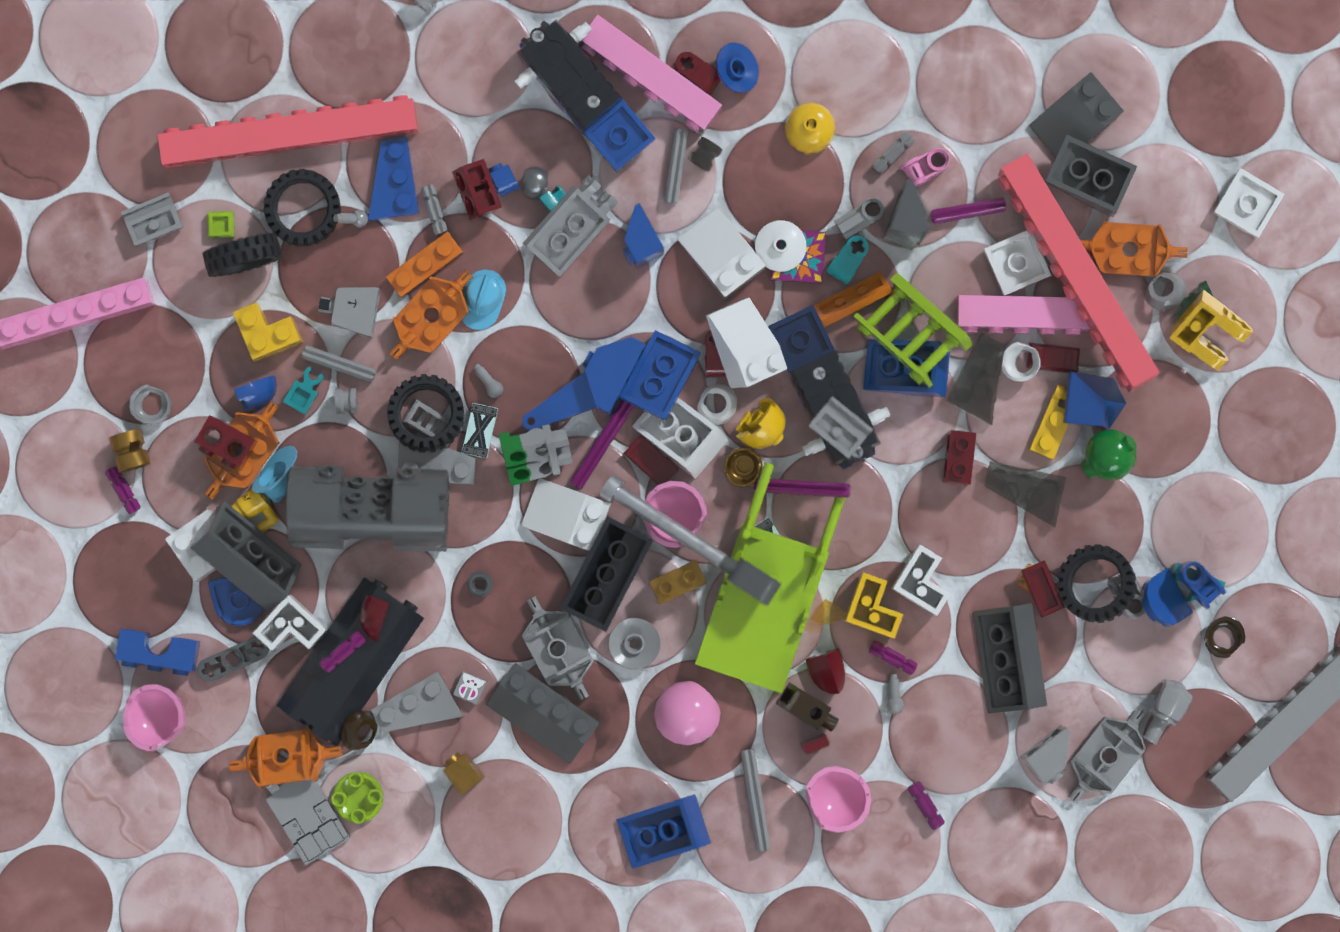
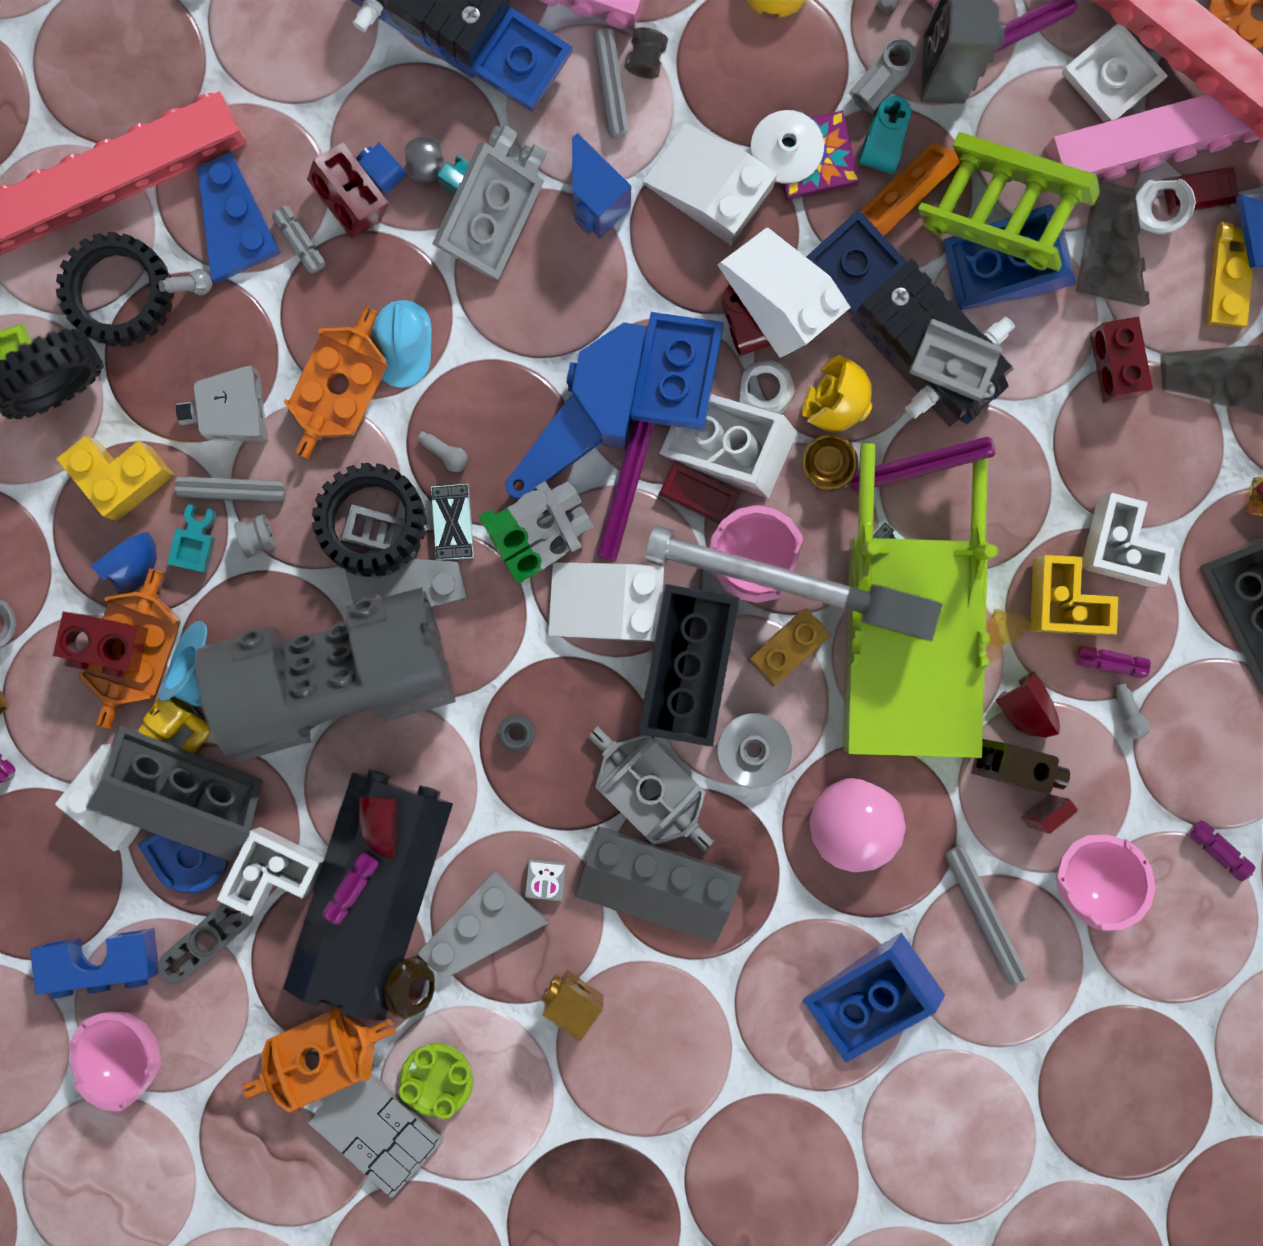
camera: 20 degrees left, 0 degrees up
(424, 264) = (311, 311): orange plate -> none

